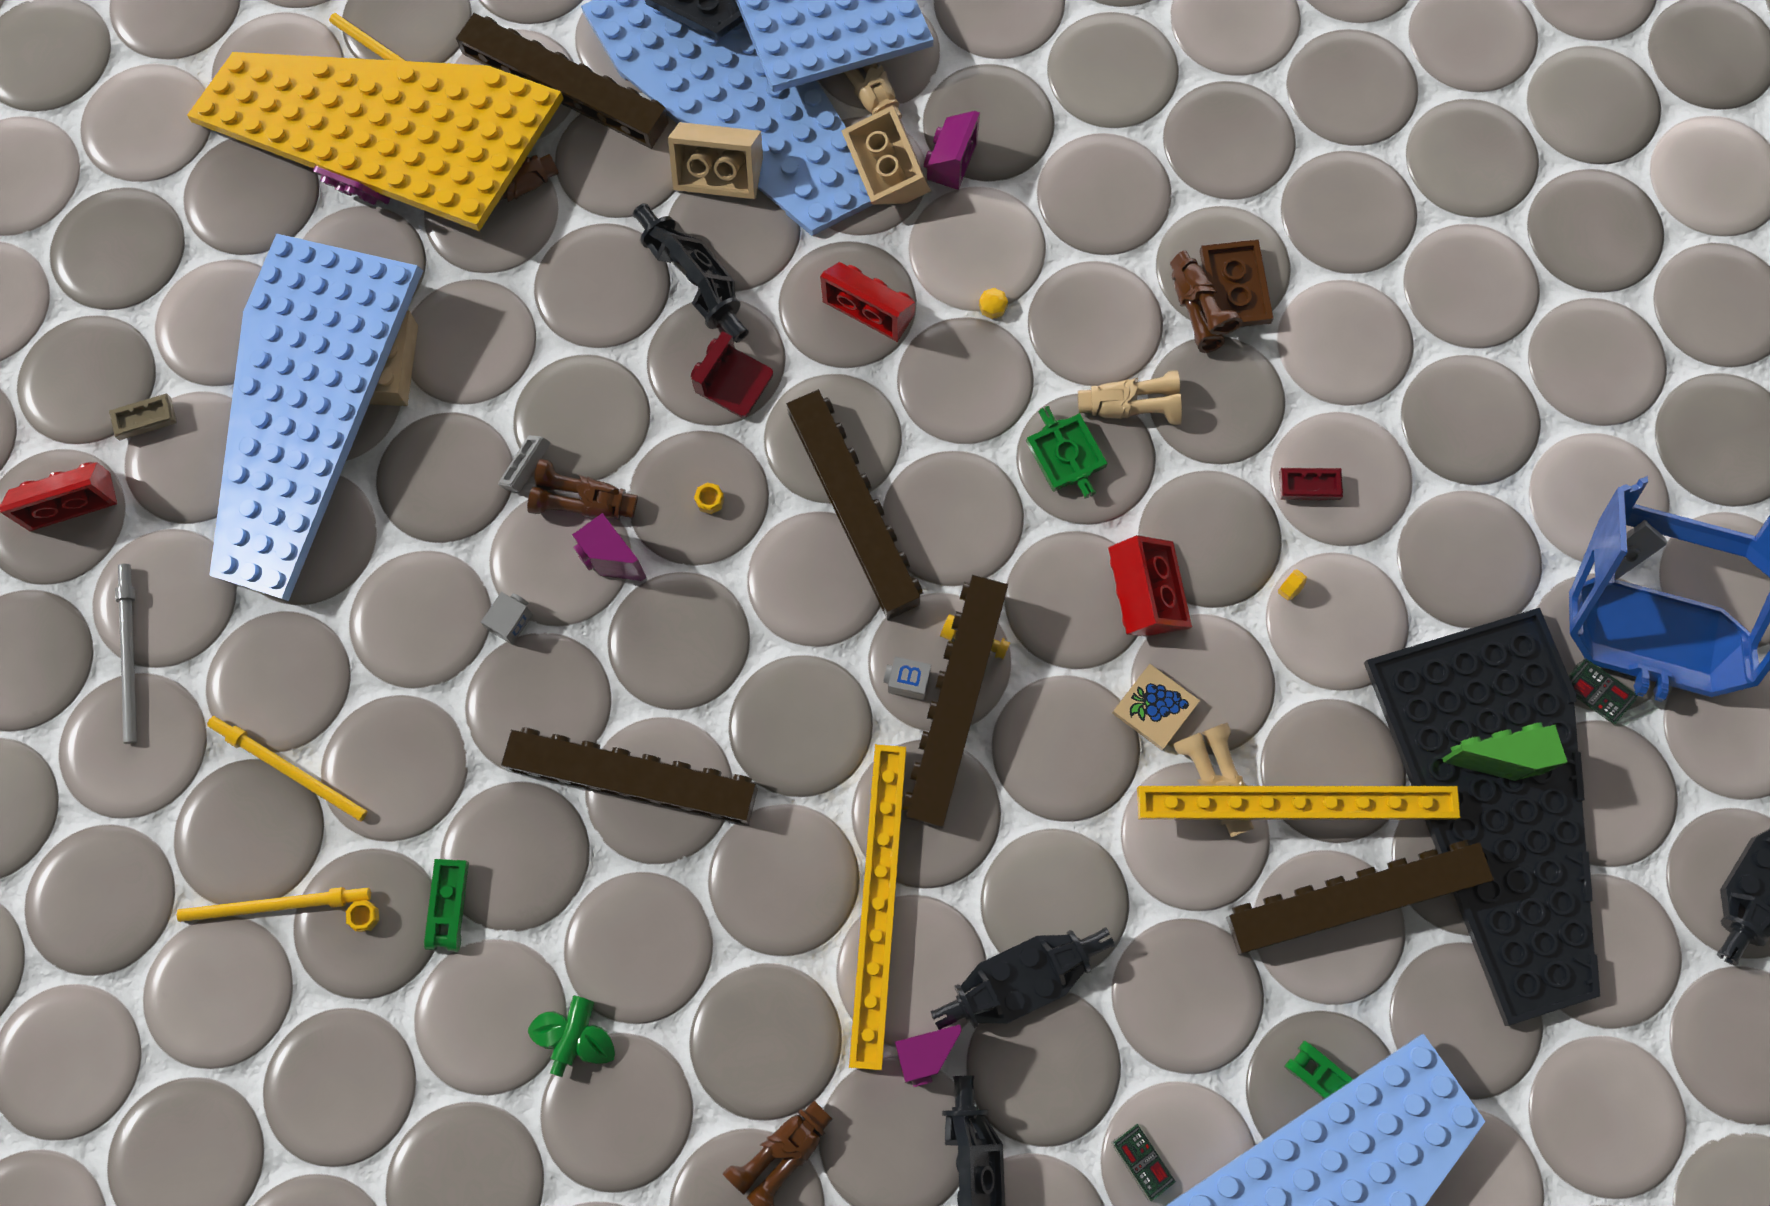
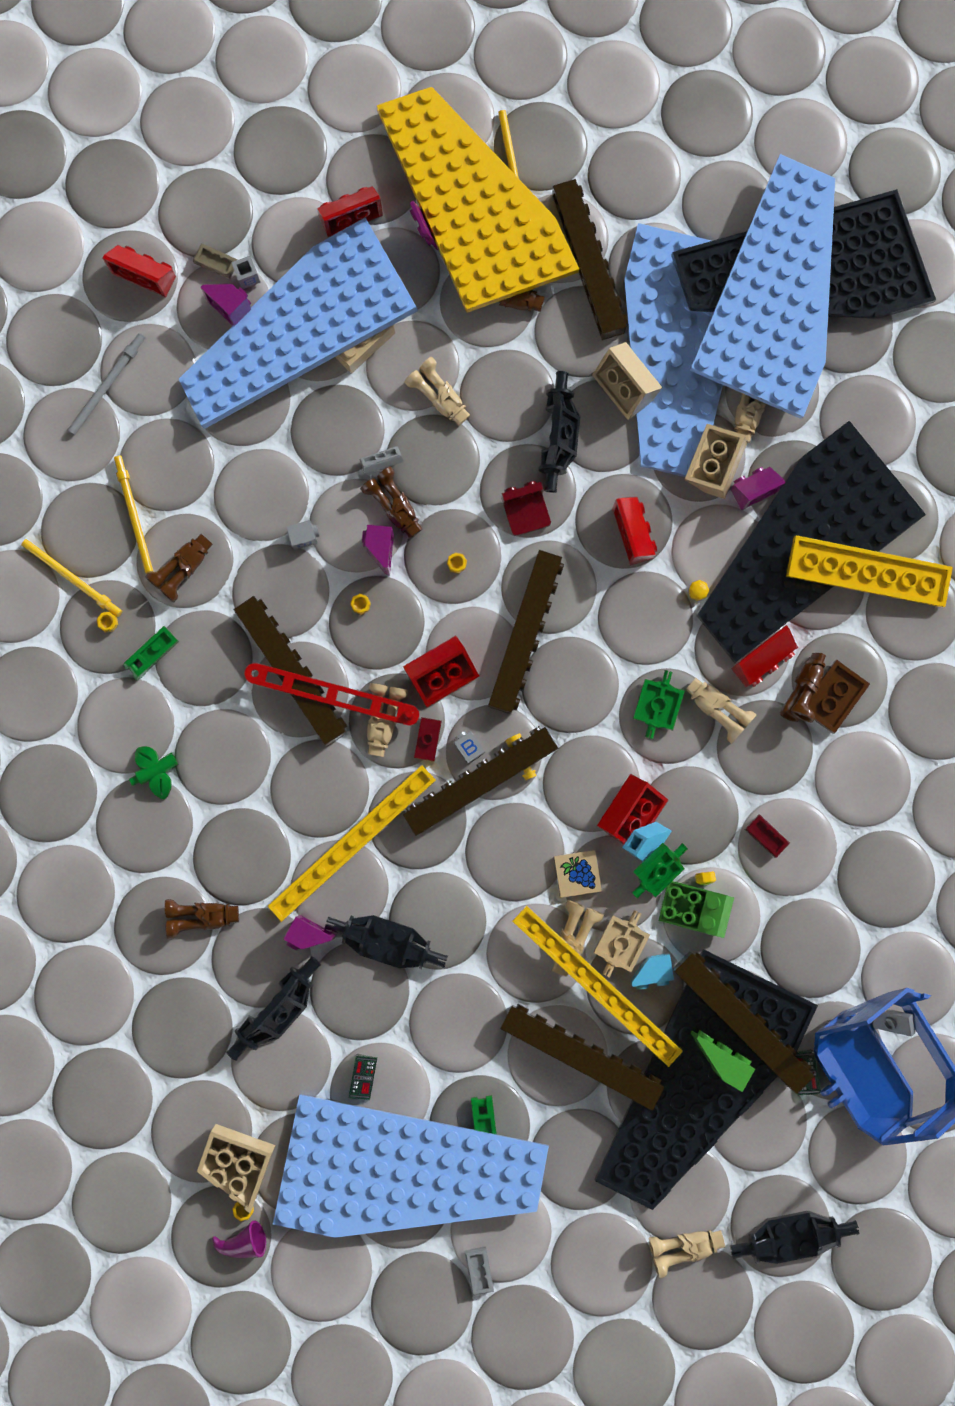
camera: 40 degrees right, 10 degrees up
(189, 396) = (246, 272): none -> light grey brick
(193, 442) = (227, 301): none -> magenta slope
(252, 238) = (349, 210): none -> red slope
(398, 757) = (188, 559): none -> reddish brown piece
(540, 342) = (446, 400): none -> tan piece
(642, 634) = (360, 604): none -> yellow tile
(791, 748) = (381, 730): none -> tan piece
(800, 625) = (441, 671): none -> red slope
(806, 703) = (406, 714): none -> red piece
(854, 713) = (427, 739): none -> dark red plate
(1056, 163) = (832, 495): none -> black wing
(1129, 305) = (766, 657): none -> red slope
(1146, 132) = (869, 571): none -> yellow plate
(1196, 603) = (645, 840): none -> medium azure slope
(1238, 619) = (659, 870): none -> green plate
(1276, 736) = (621, 943): none -> tan plate
(1315, 626) = (696, 909): none -> bright green slope
(1337, 732) = (653, 970): none -> medium azure slope
(1486, 695) = (743, 1022): none -> dark brown brick
(1683, 988) = (695, 1246): none -> tan piece

